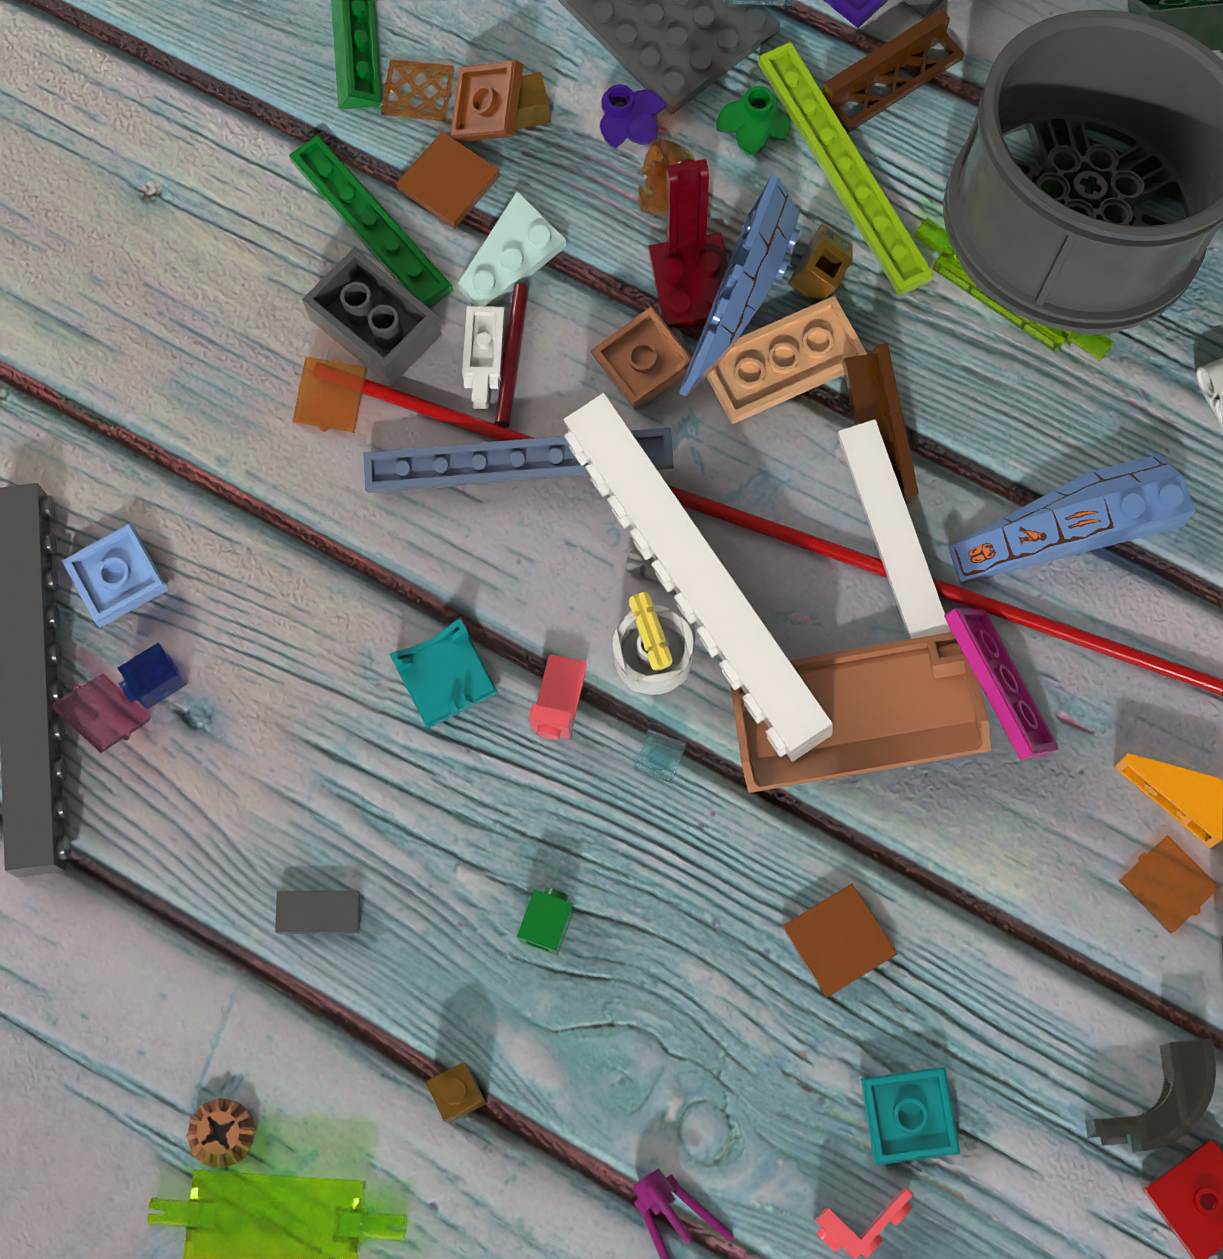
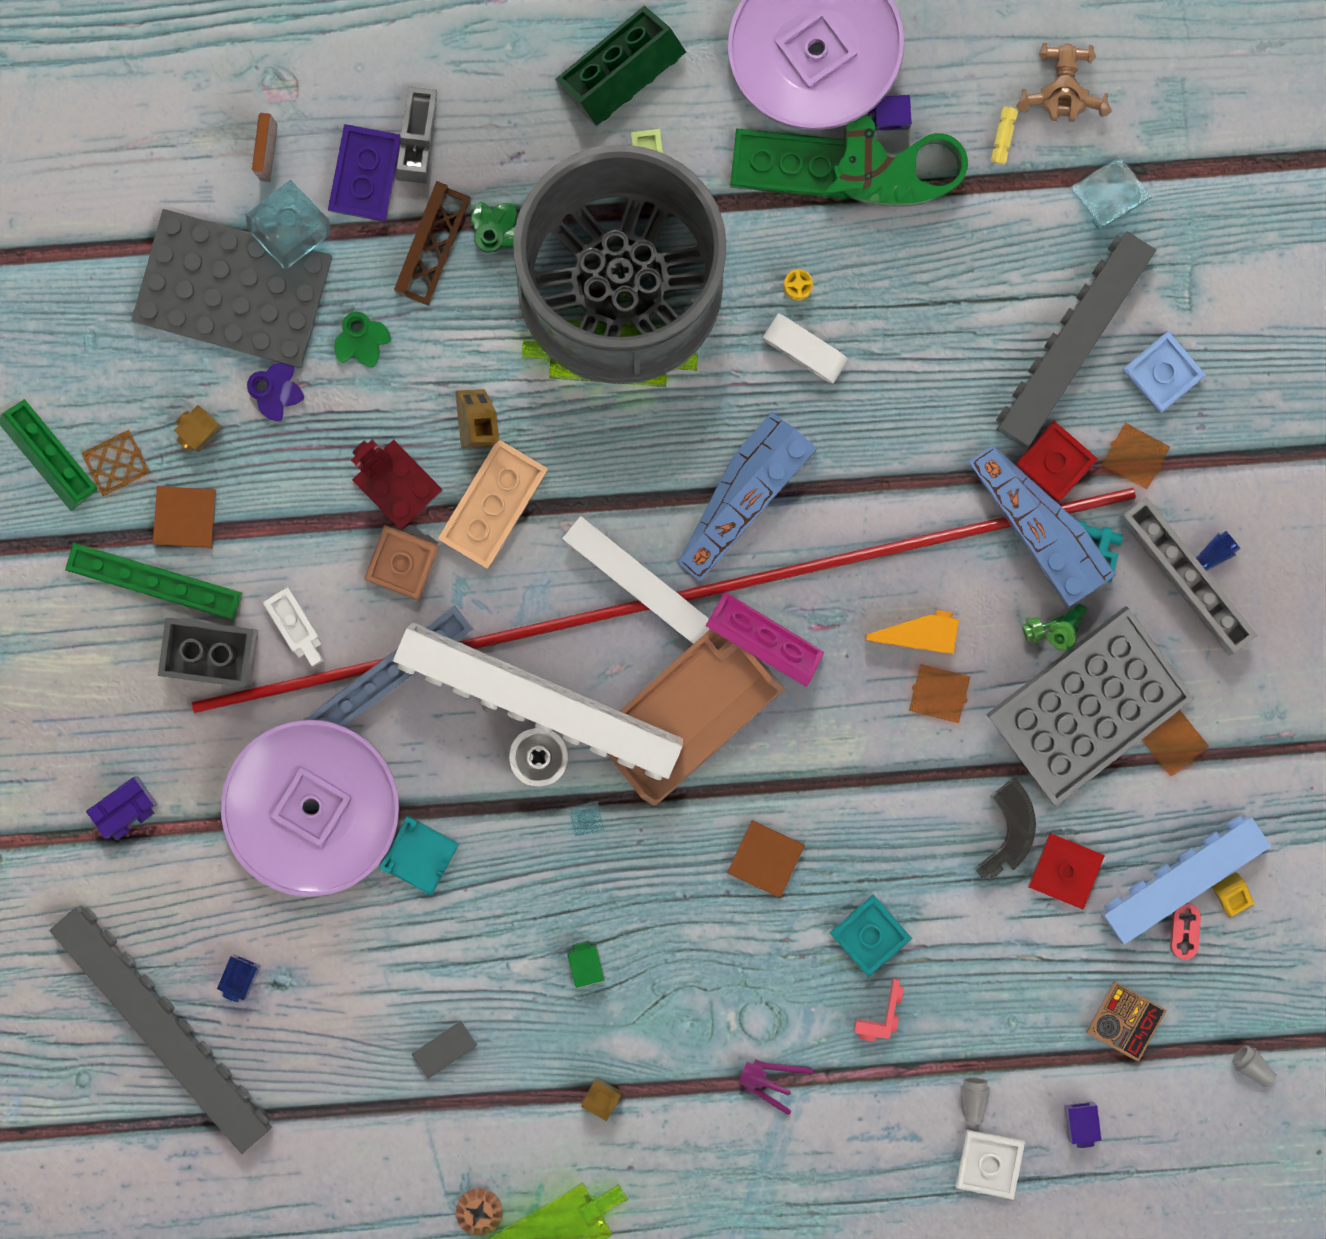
camera: 35 degrees left, 15 degrees up
(101, 712) = (224, 1020): clear pink piece -> none
(115, 575) = (165, 929): light blue plate -> none
(165, 420) = (122, 808): none -> dark purple brick
(329, 394) = (215, 720): clear orange piece -> none
(348, 488) = (304, 850): none -> lavender dish
(487, 101) = (175, 449): dark orange tile -> none
(511, 253) = (263, 543): light aqua wing -> none
(511, 355) = (313, 614): dark red bar -> none
(558, 698) = (500, 823): coral bracket -> none
(650, 631) = (532, 752): light yellow axle -> none
(660, 155) = (336, 426): clear orange cylinder -> none
(748, 277) = (437, 473): medium blue wedge -> none
(845, 169) = (443, 337): lime plate -> none
(876, 397) = (573, 502): reddish brown fence -> none
(962, 94) = (496, 222): none -> green plate

